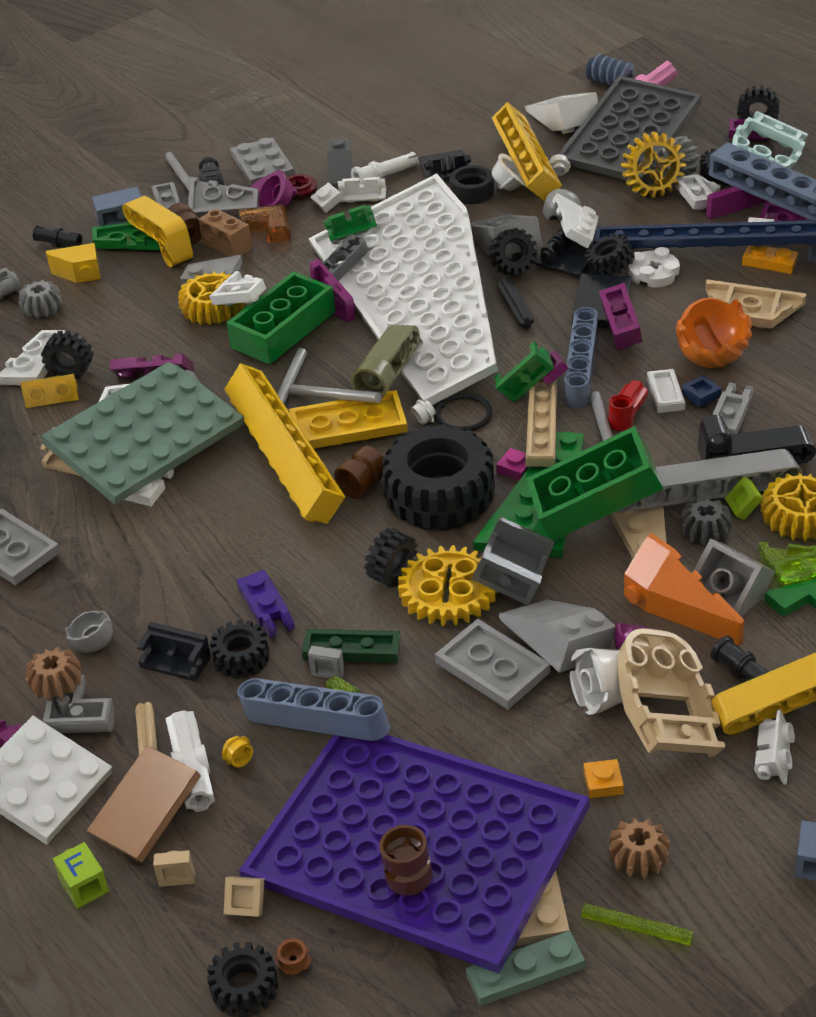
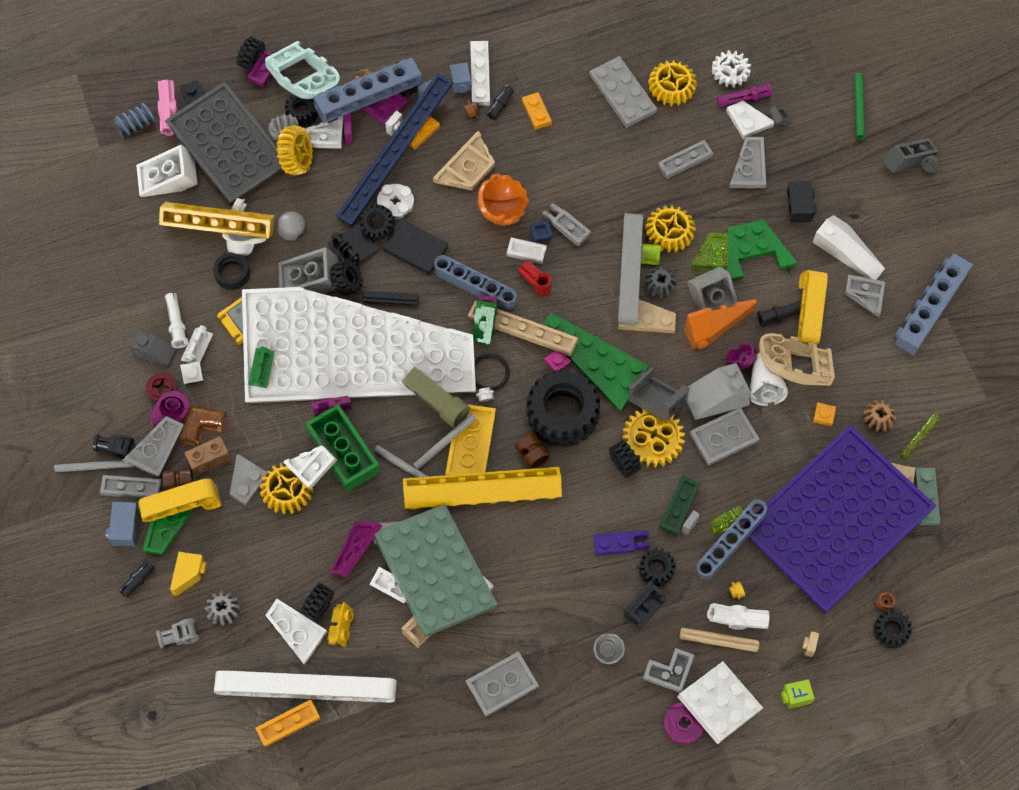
camera: 75 degrees left, 25 degrees up
(53, 673) = (654, 666): medium nougat gear -> none
(144, 803) = (763, 648): medium nougat tile -> none
(244, 896) = (842, 613): tan plate -> none
(260, 159) = (107, 402): light grey plate -> none
(350, 252) = (295, 375): dark grey beam -> none
(406, 859) = (867, 524): reddish brown wheel -> none
(443, 163) = (191, 278): black hinge -> none
(577, 221) = (325, 221): white wing -> none
(594, 483) = (633, 325): green brick -> none
(600, 415) = (549, 299): light grey bar -> none
(620, 316) = (456, 244): magenta brick -> none
(717, 441) = (610, 228): black beam -> none
(775, 738) = (844, 329): white hinge -> none

